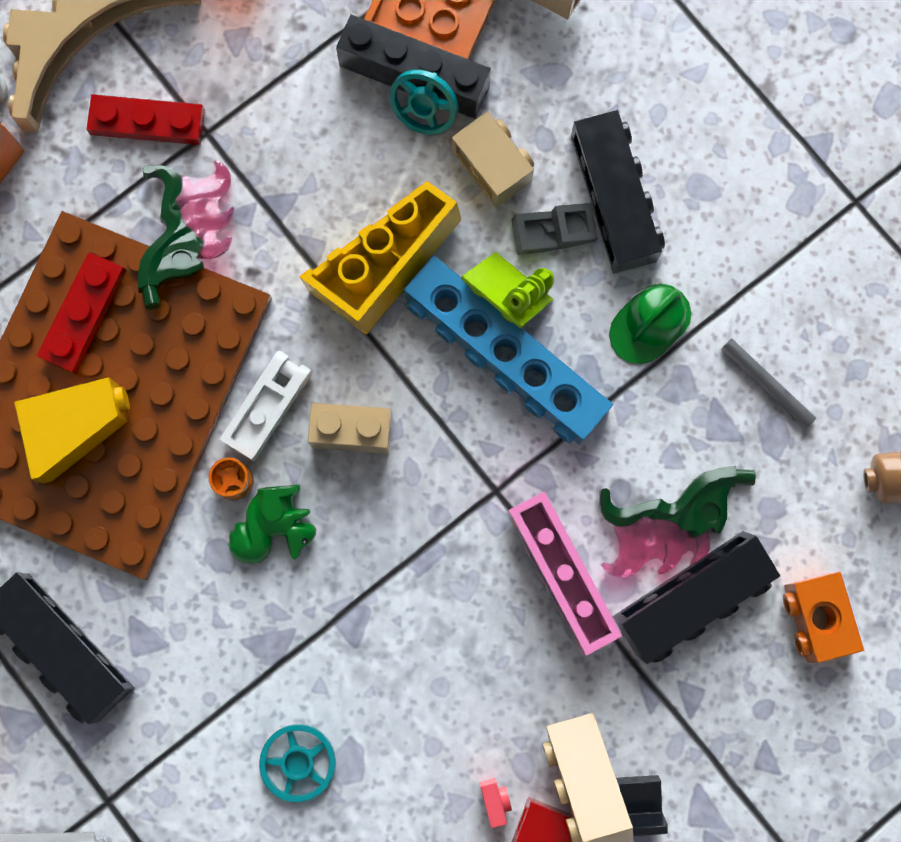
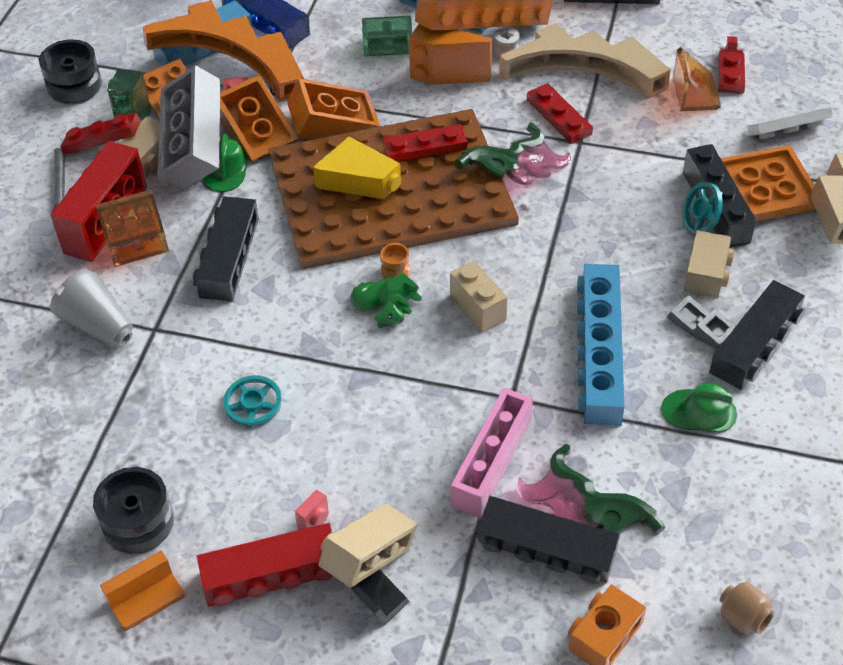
camera: 55 degrees right, 30 degrees down
(265, 406) = (453, 253): white plate -> none
(384, 258) = (571, 244): yellow wedge -> none
(509, 290) = (641, 317): lime hinge -> none
(768, 383) = (731, 499): flat silver bar -> none

